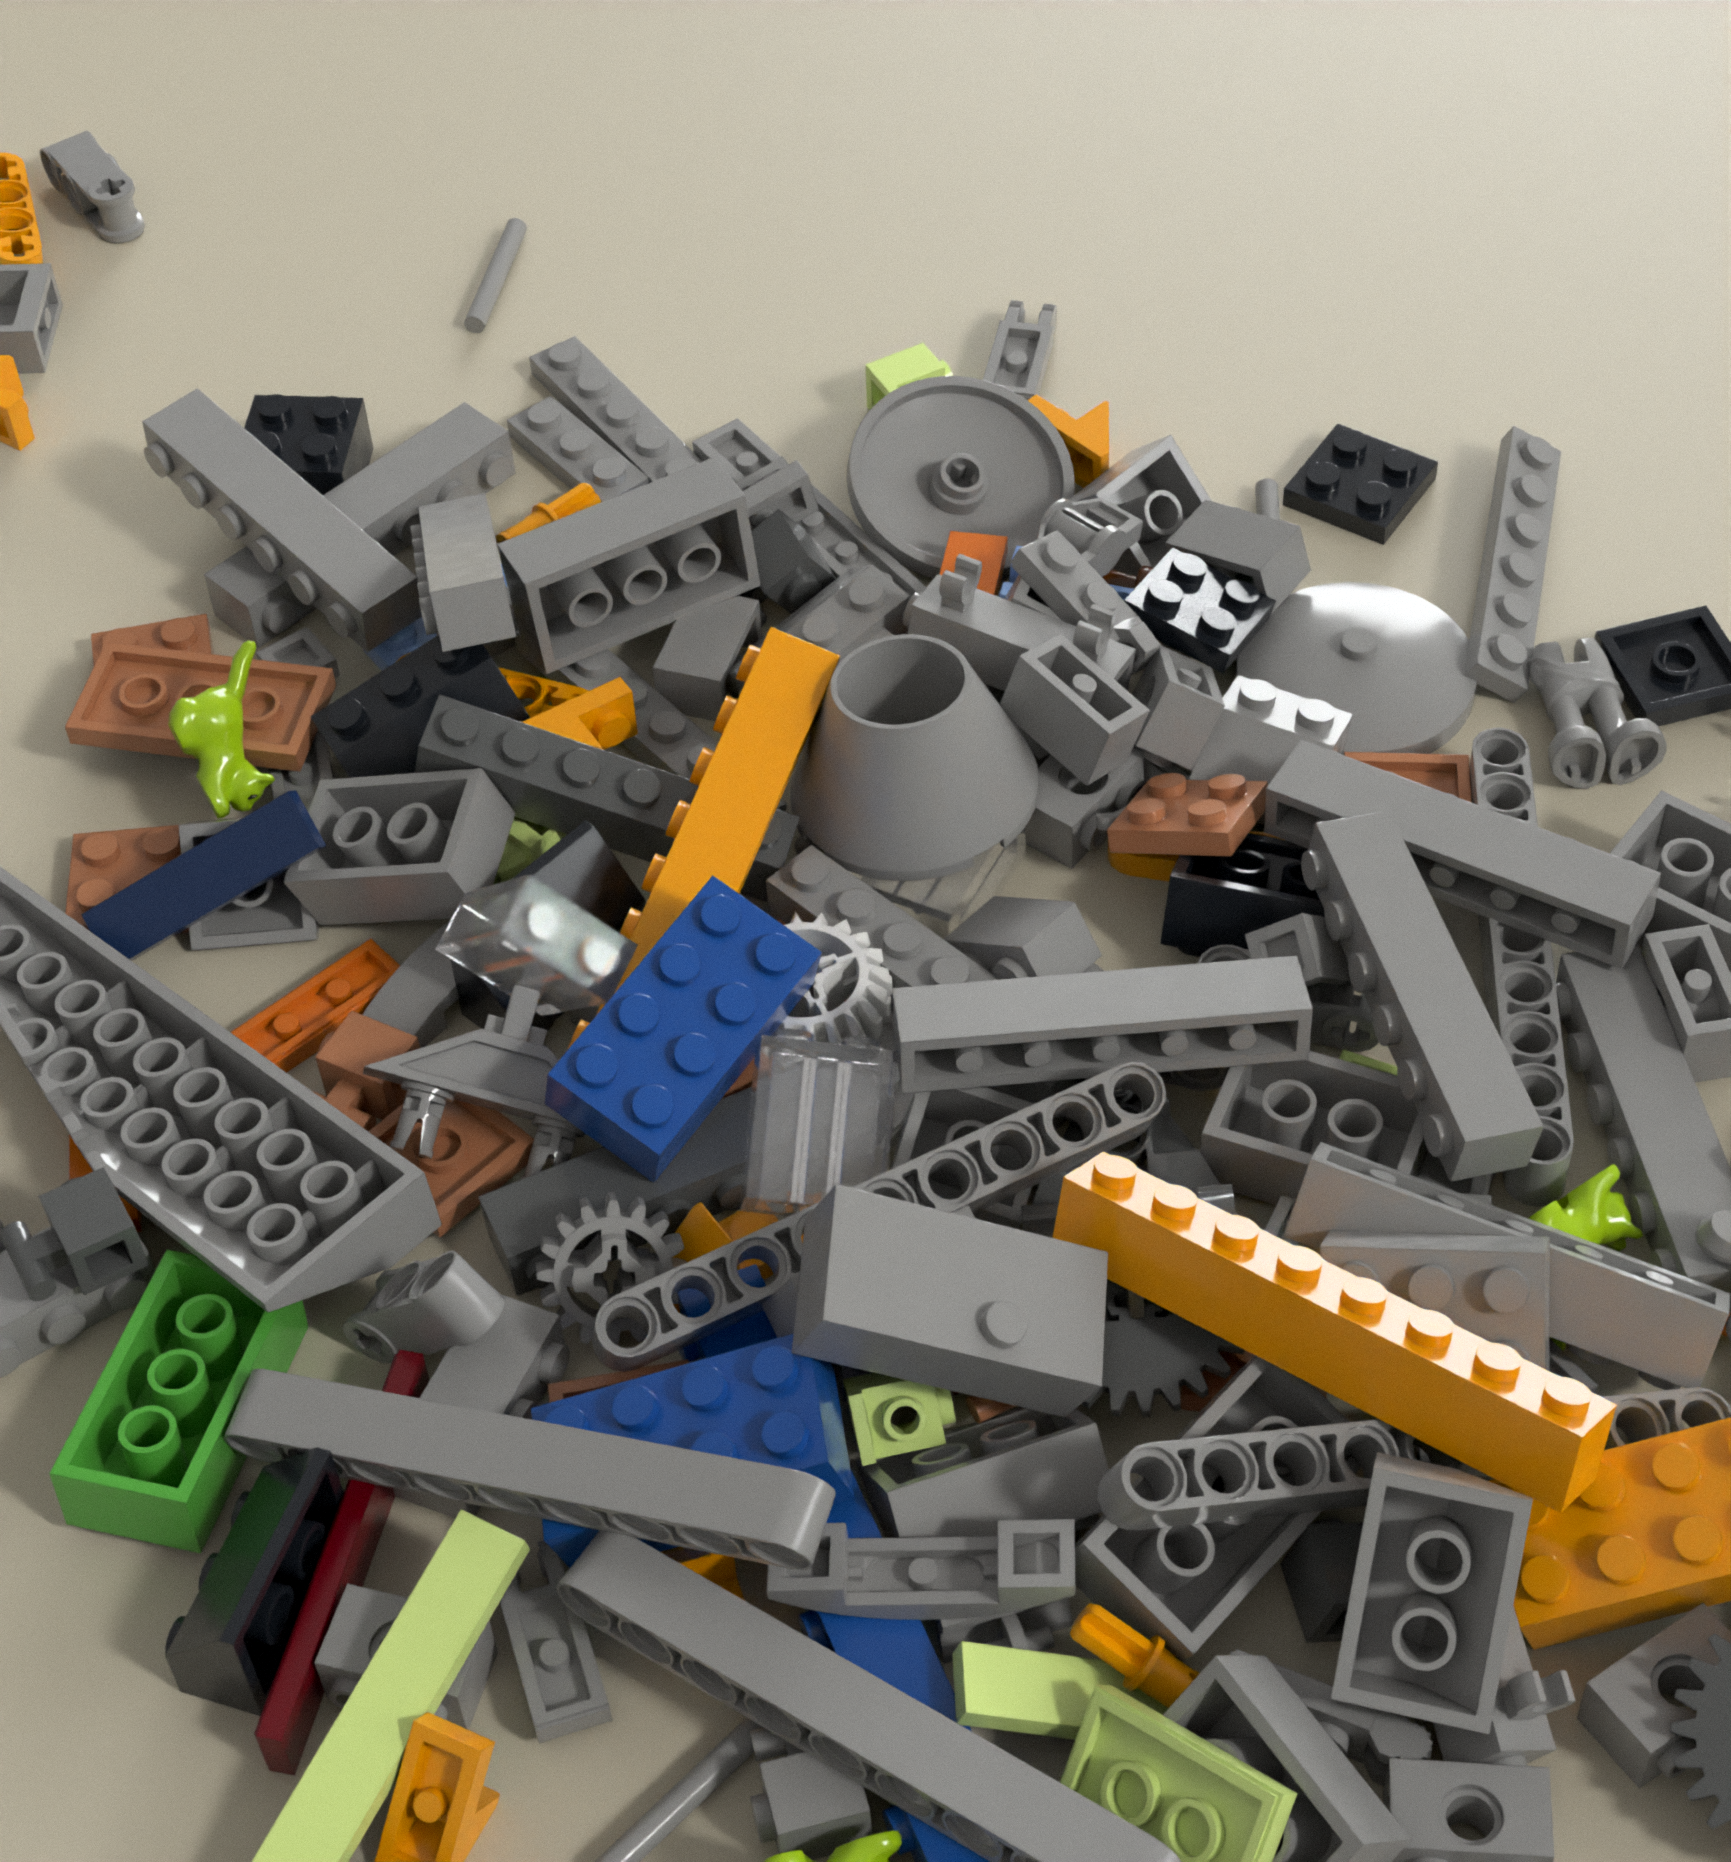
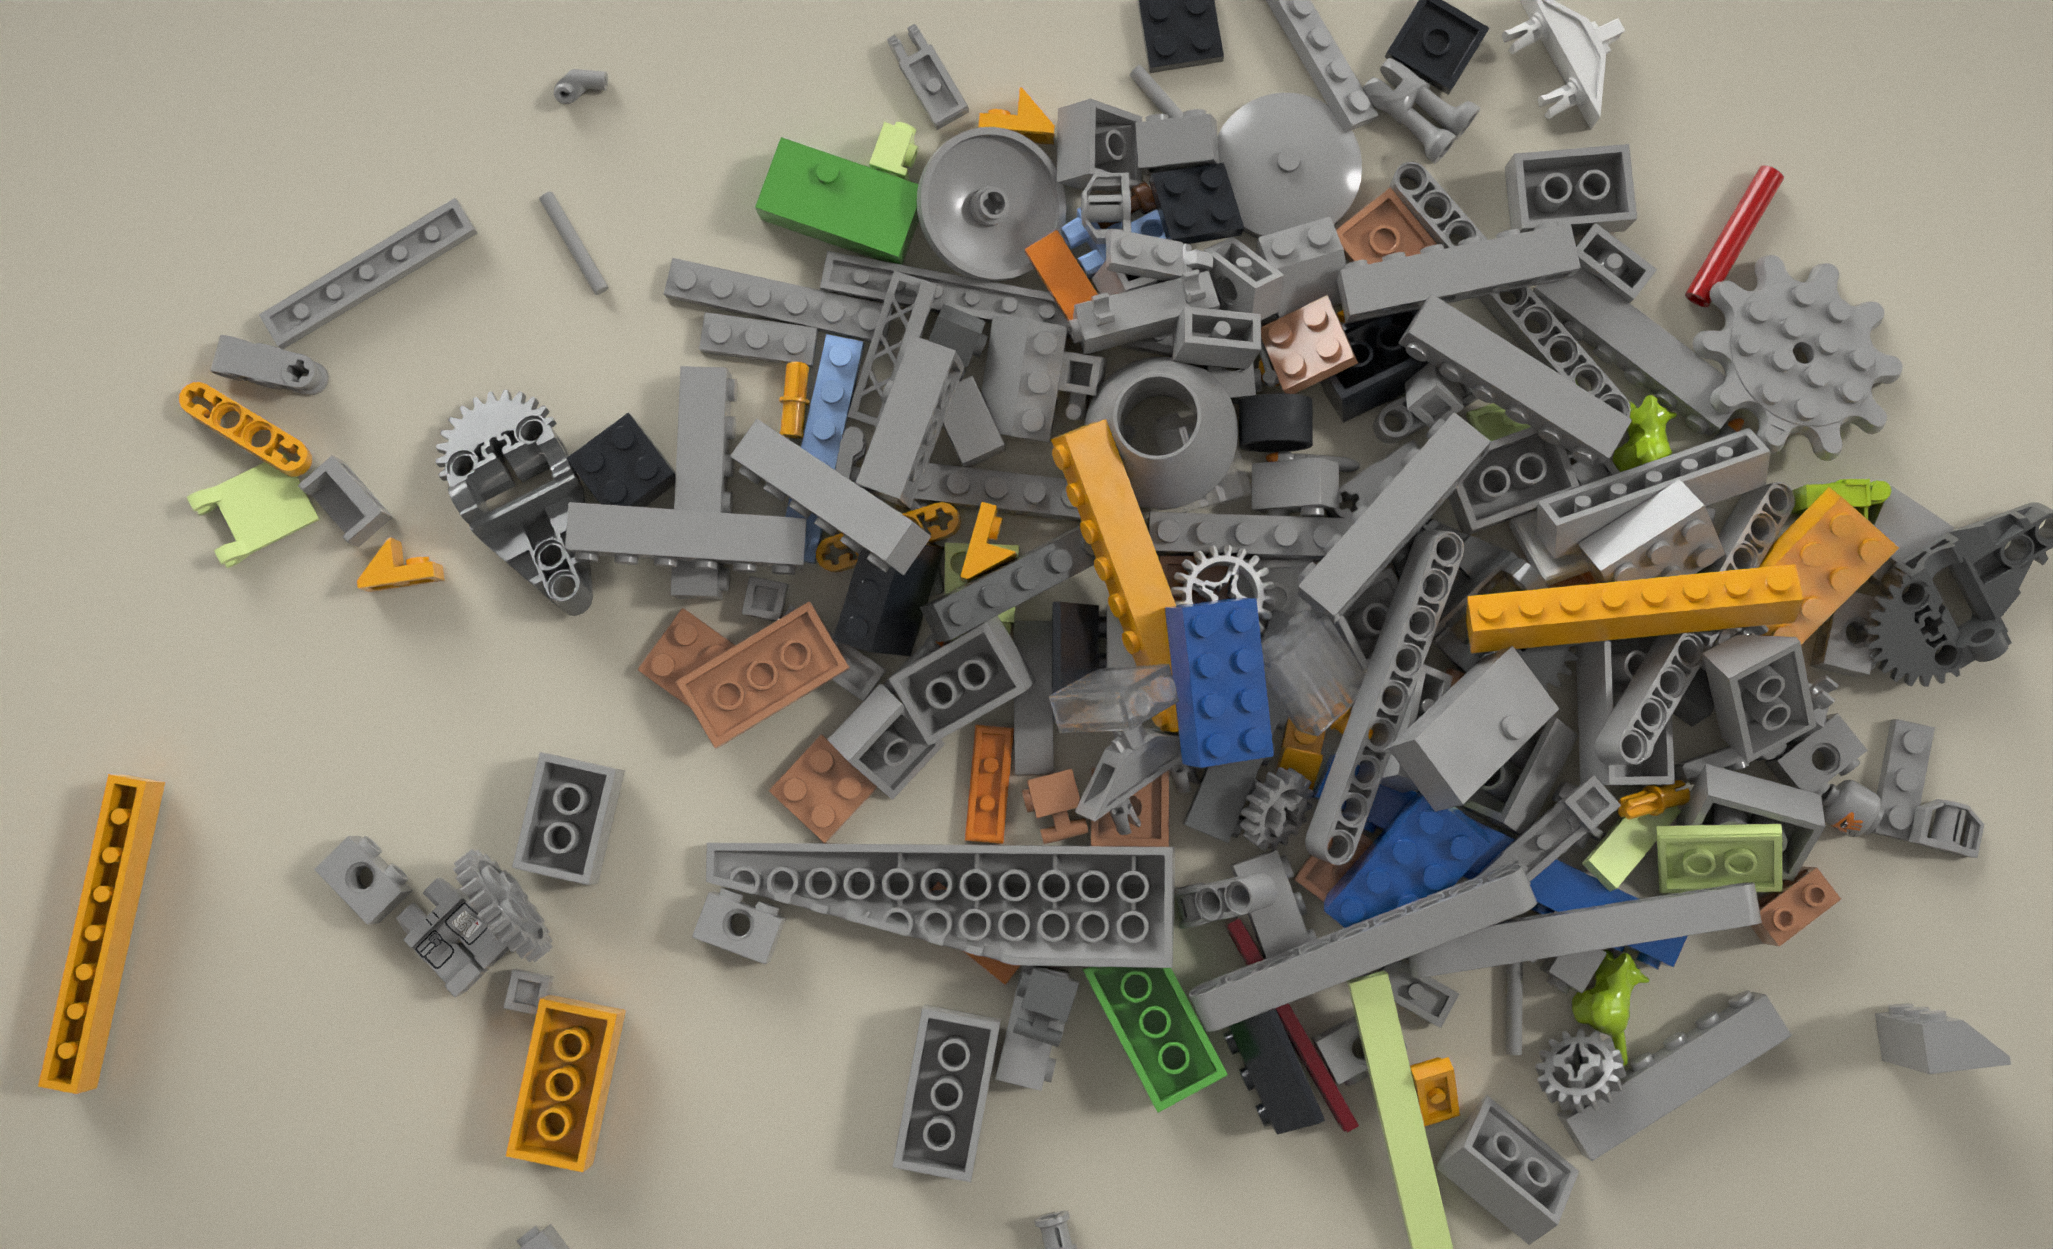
camera: 40 degrees left, 35 degrees up
(144, 375) = (533, 527): none -> dark grey connector
(206, 877) = (887, 775): dark blue tile -> none
(213, 733) = (810, 700): lime animal -> none
(278, 178) = (368, 274): none -> light grey plate
(655, 164) = (577, 82): none -> light grey arm
(791, 381) = (839, 202): none -> bright green brick
(1073, 858) = (1275, 422): none -> black piece

